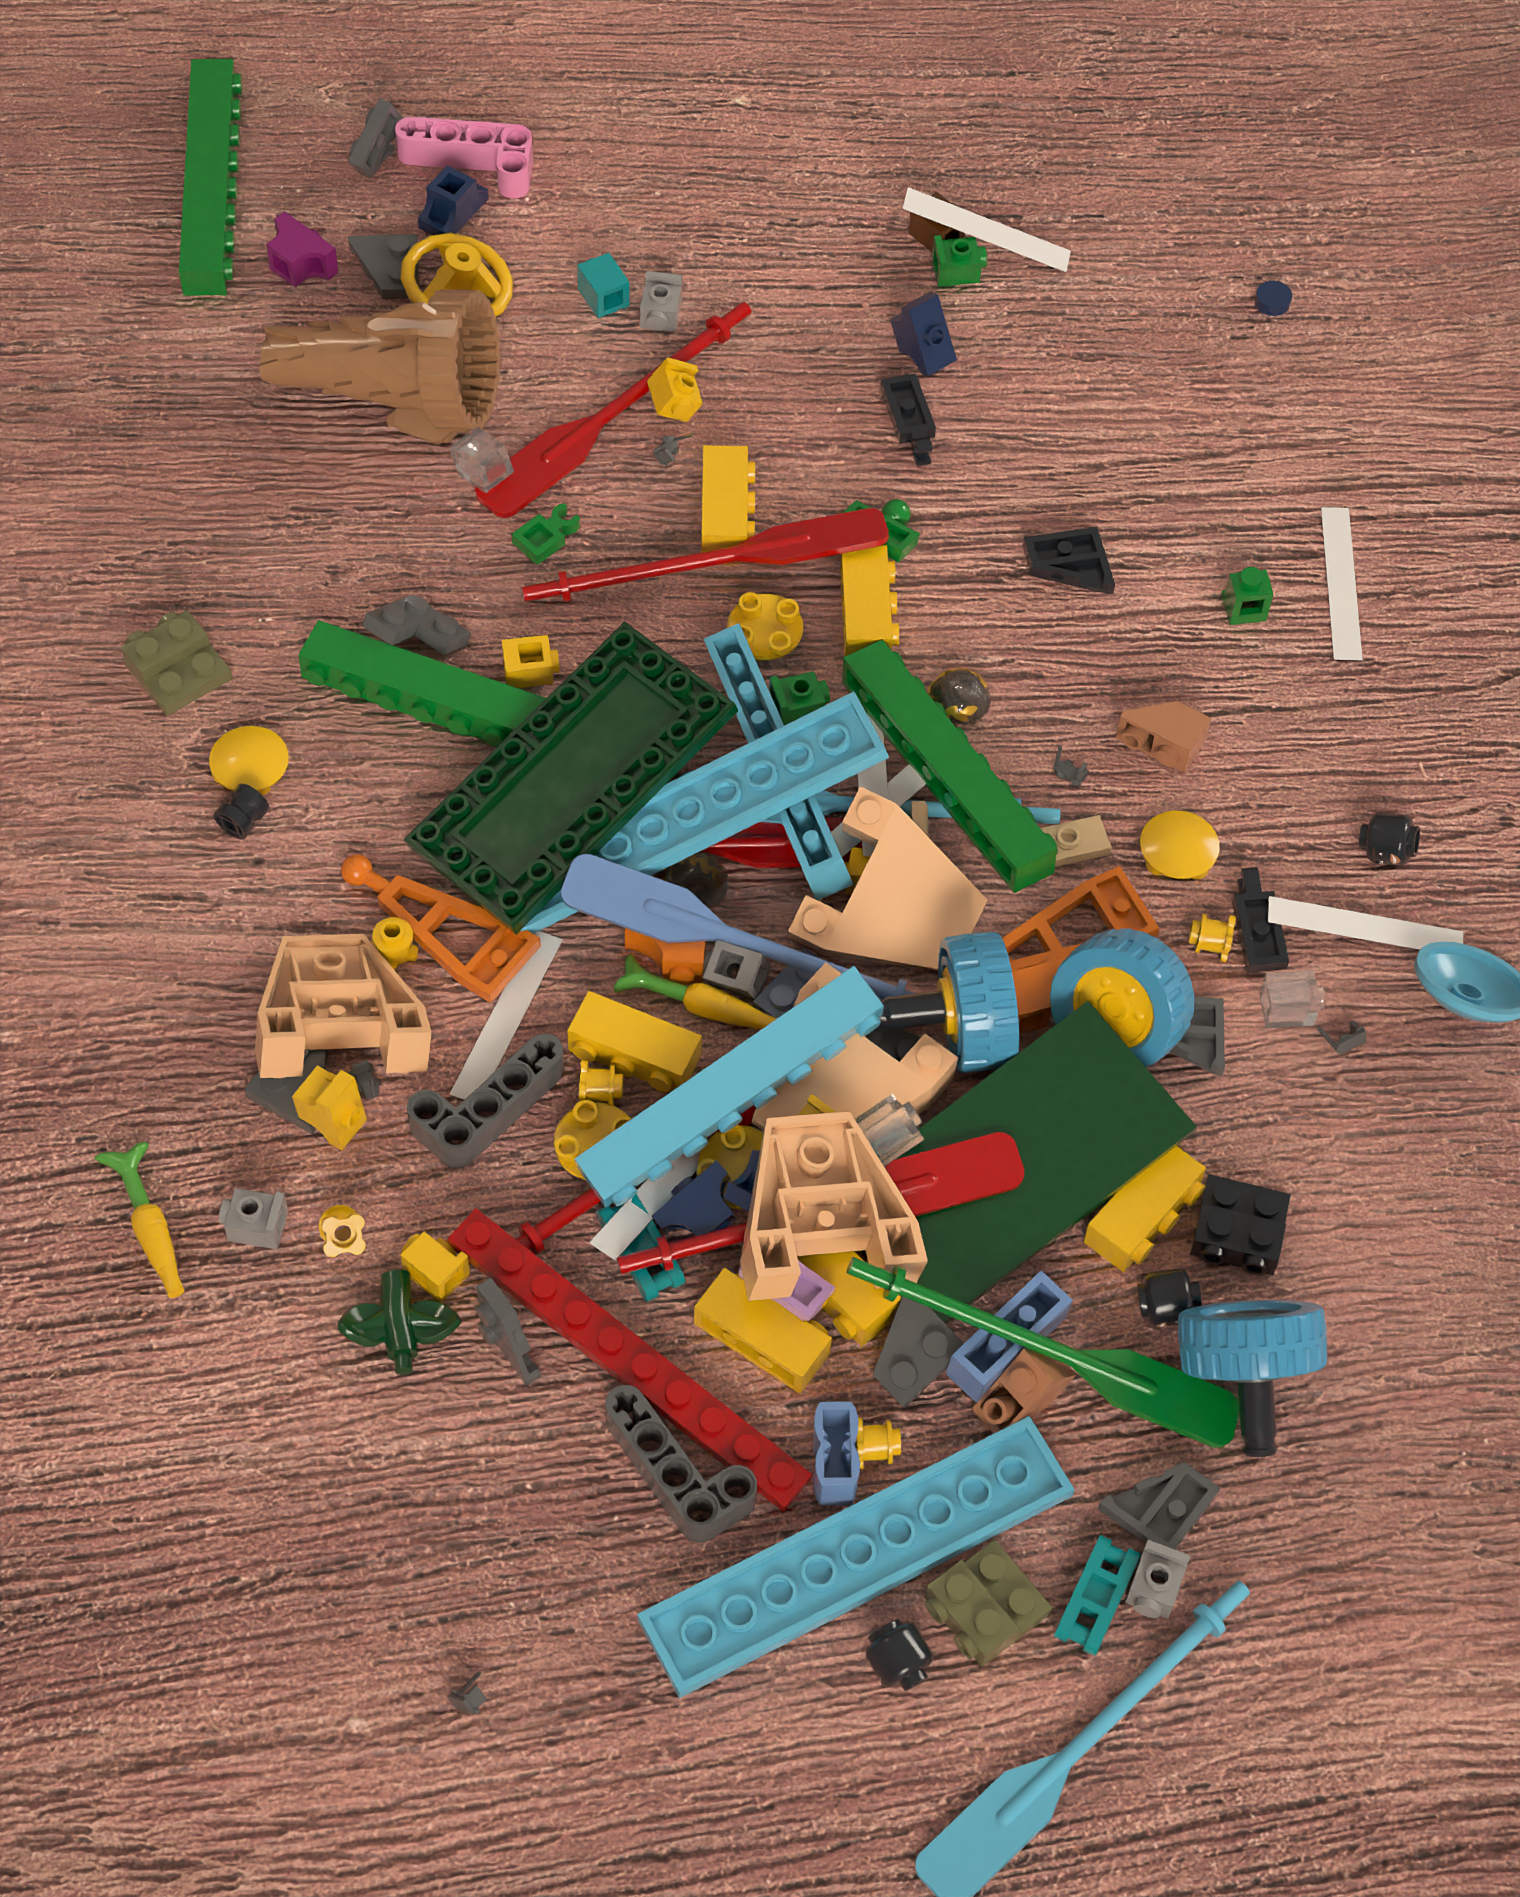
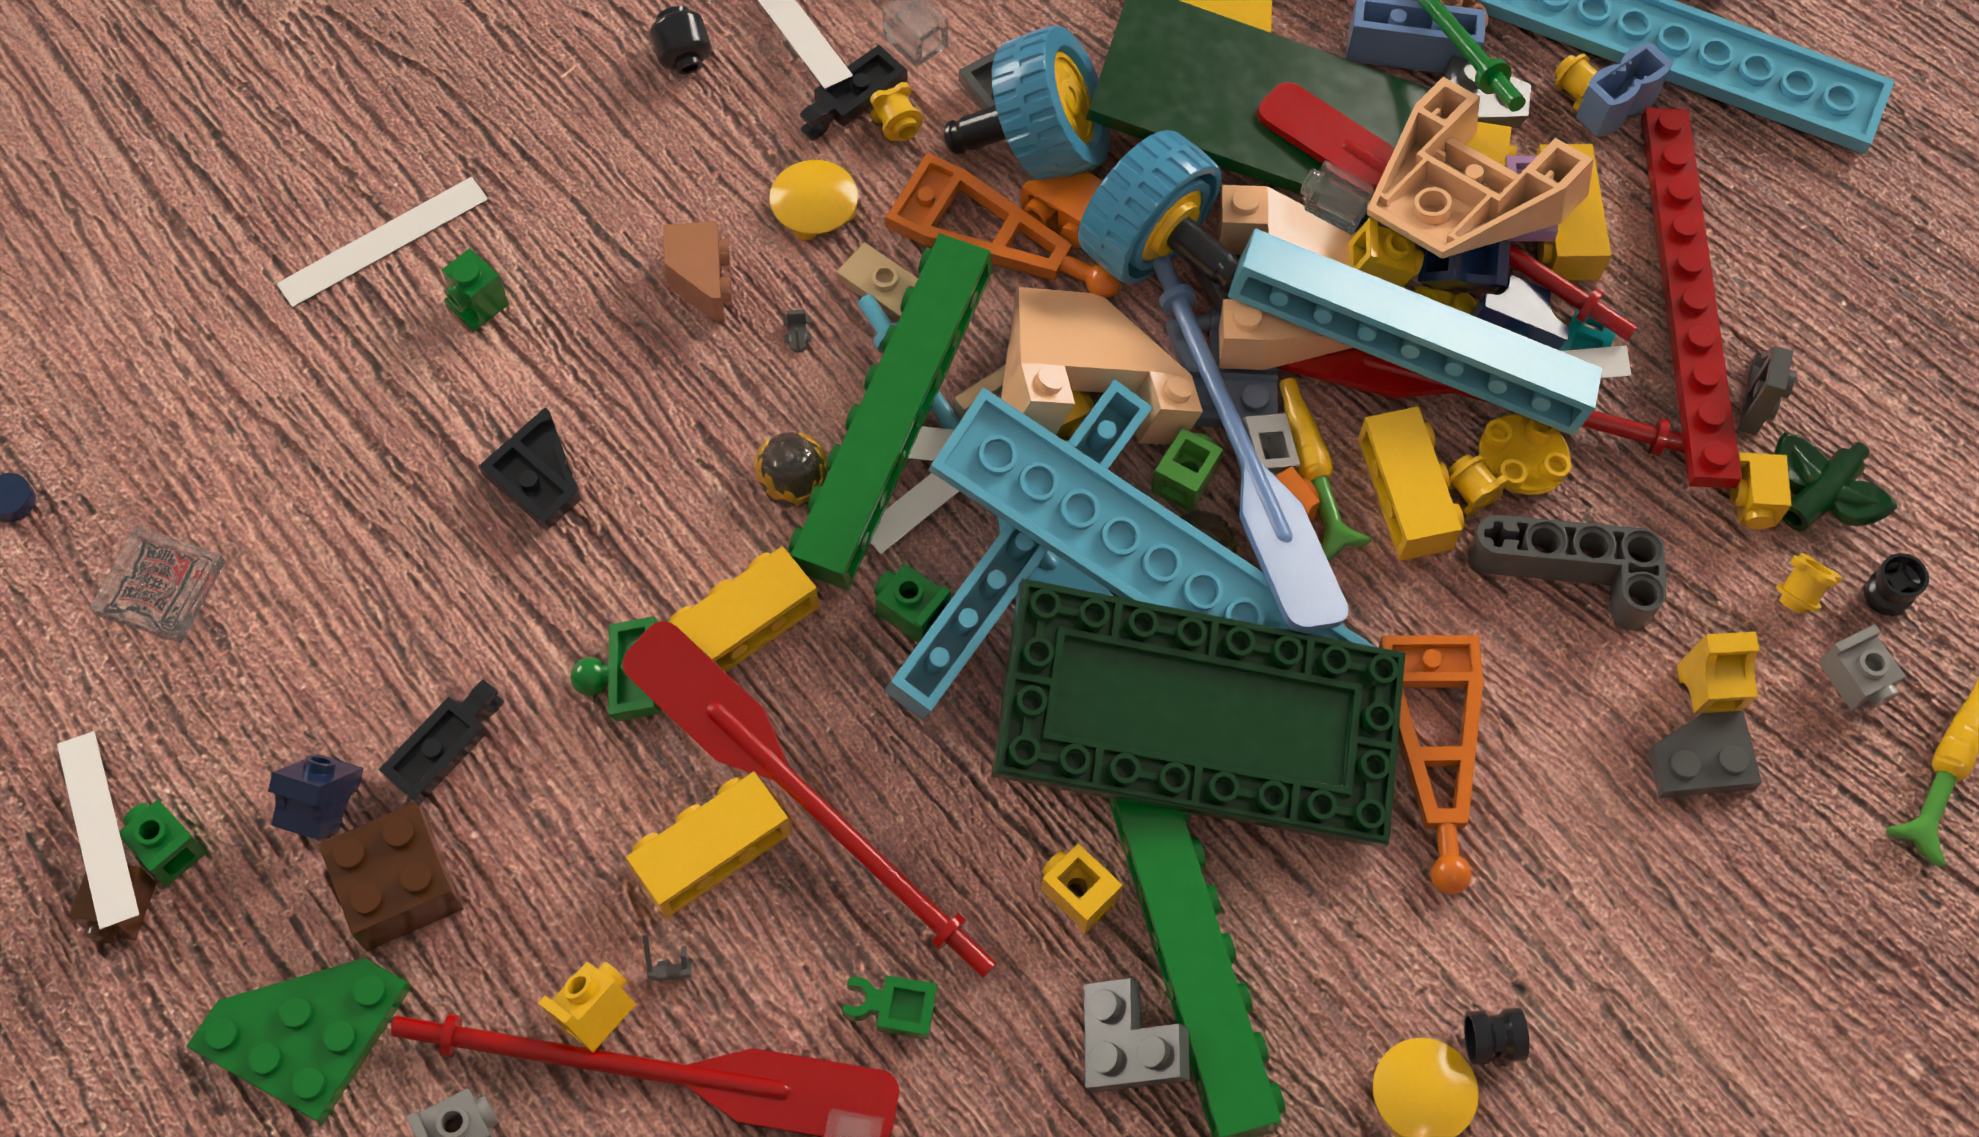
camera: 125 degrees left, 5 degrees up
(288, 1282) = (1896, 584): none -> black wheel
(337, 997) = (1603, 779): light nougat wedge -> none
(366, 1082) = (1644, 692): dark grey piece -> none
(393, 940) = (1497, 781): yellow brick -> none
(505, 1019) = (1495, 618): white sticker -> none
(672, 1460) = (1749, 162): dark grey beam -> none
(761, 912) = (1187, 469): none -> bright green brick
(769, 624) = (841, 698): yellow dish -> none
(780, 273) = (304, 1033): none -> green plate
(838, 345) = (390, 877): none -> reddish brown brick
(1146, 341) = (158, 584): none -> clear tile

